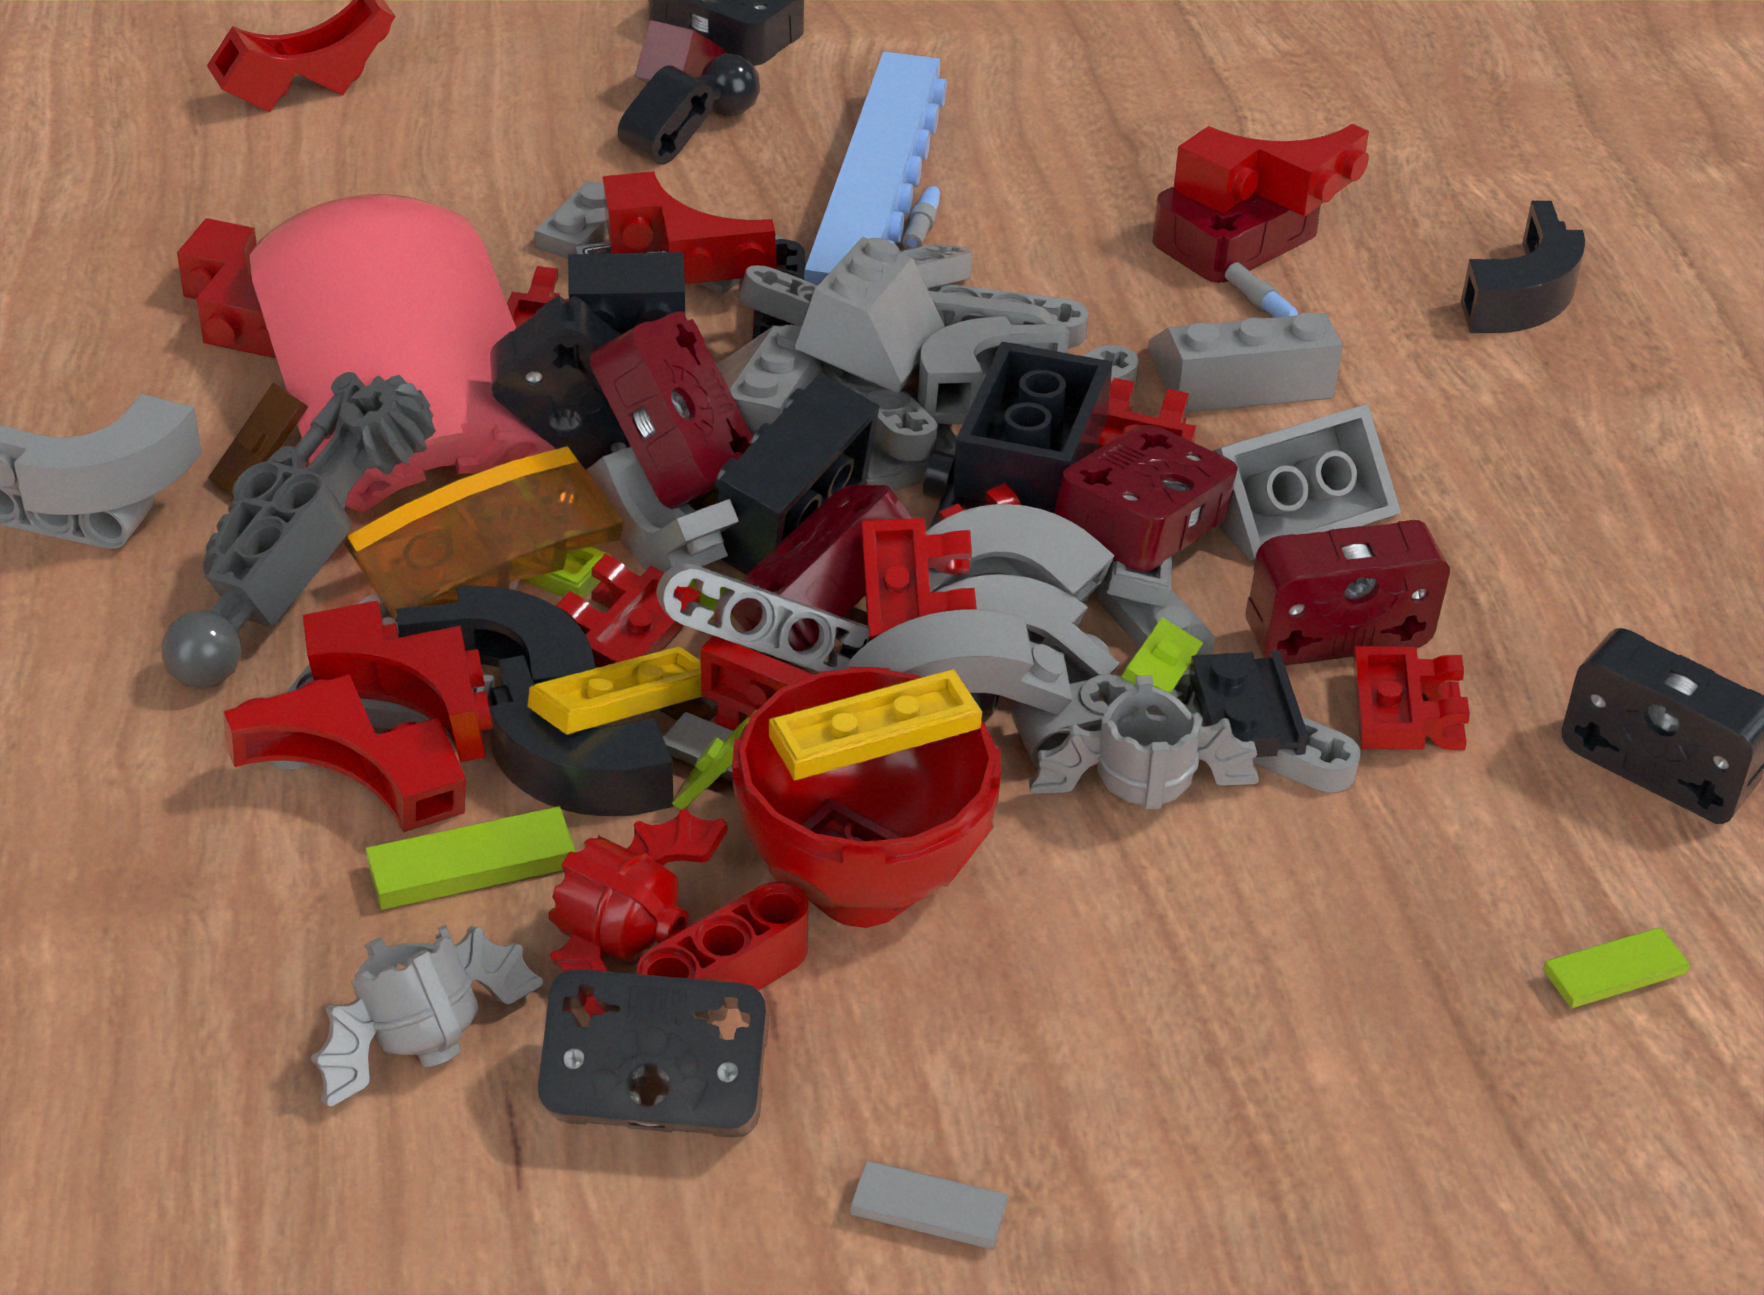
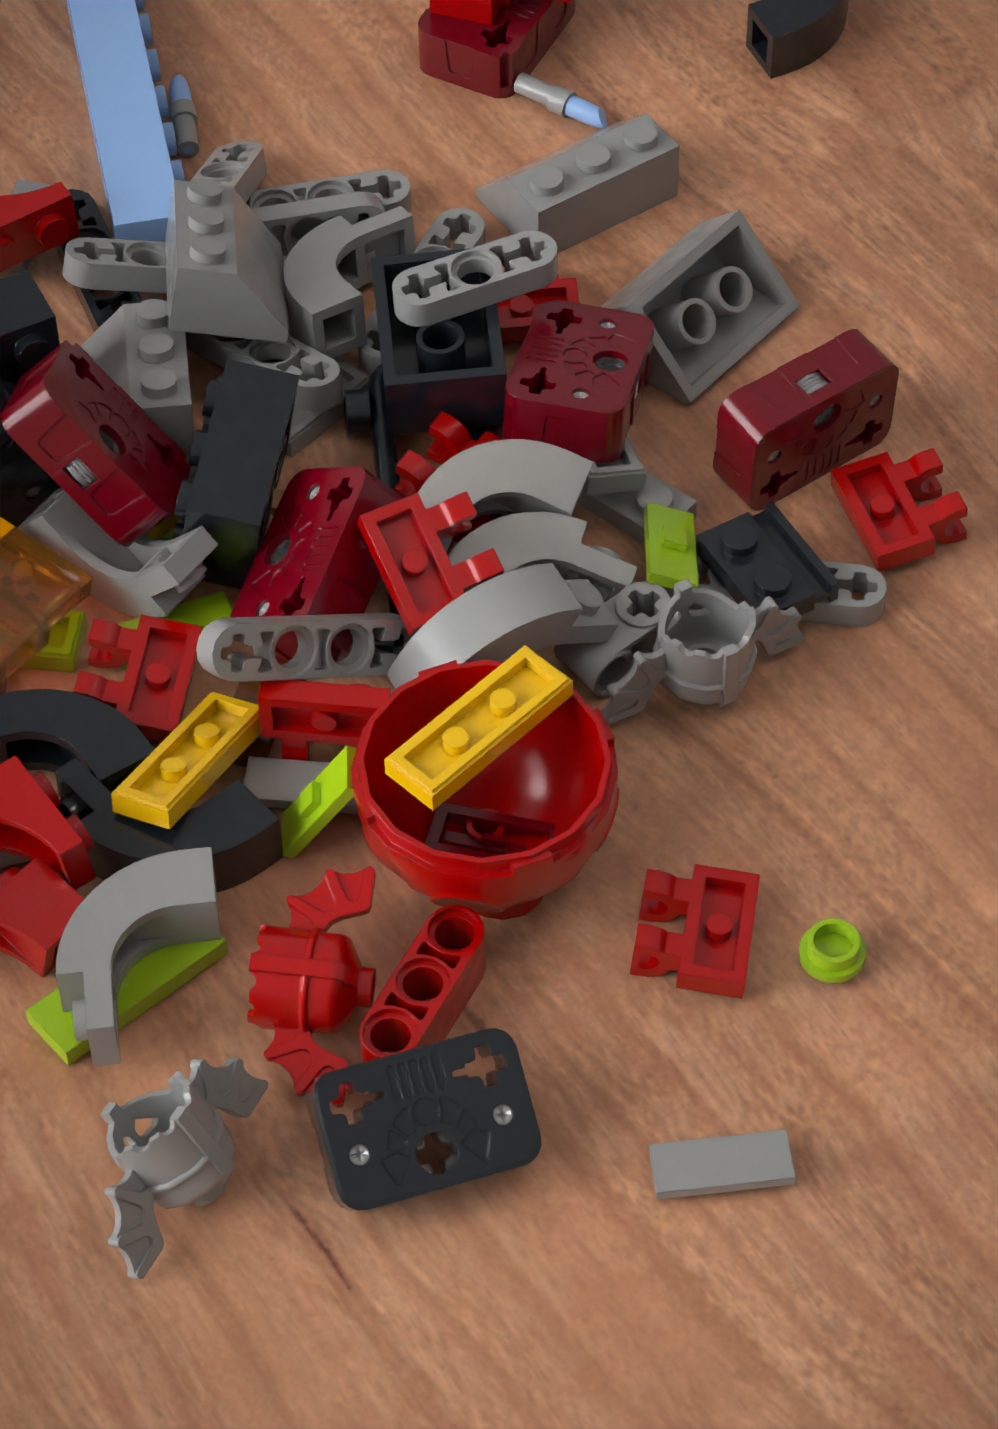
camera: 20 degrees left, 10 degrees up
(481, 800) = (120, 922): none -> light grey arch
(1033, 999) = (717, 929): none -> red plate
(1117, 376) = (518, 278): none -> light grey beam
(1140, 1053) = (832, 951): none -> lime plate

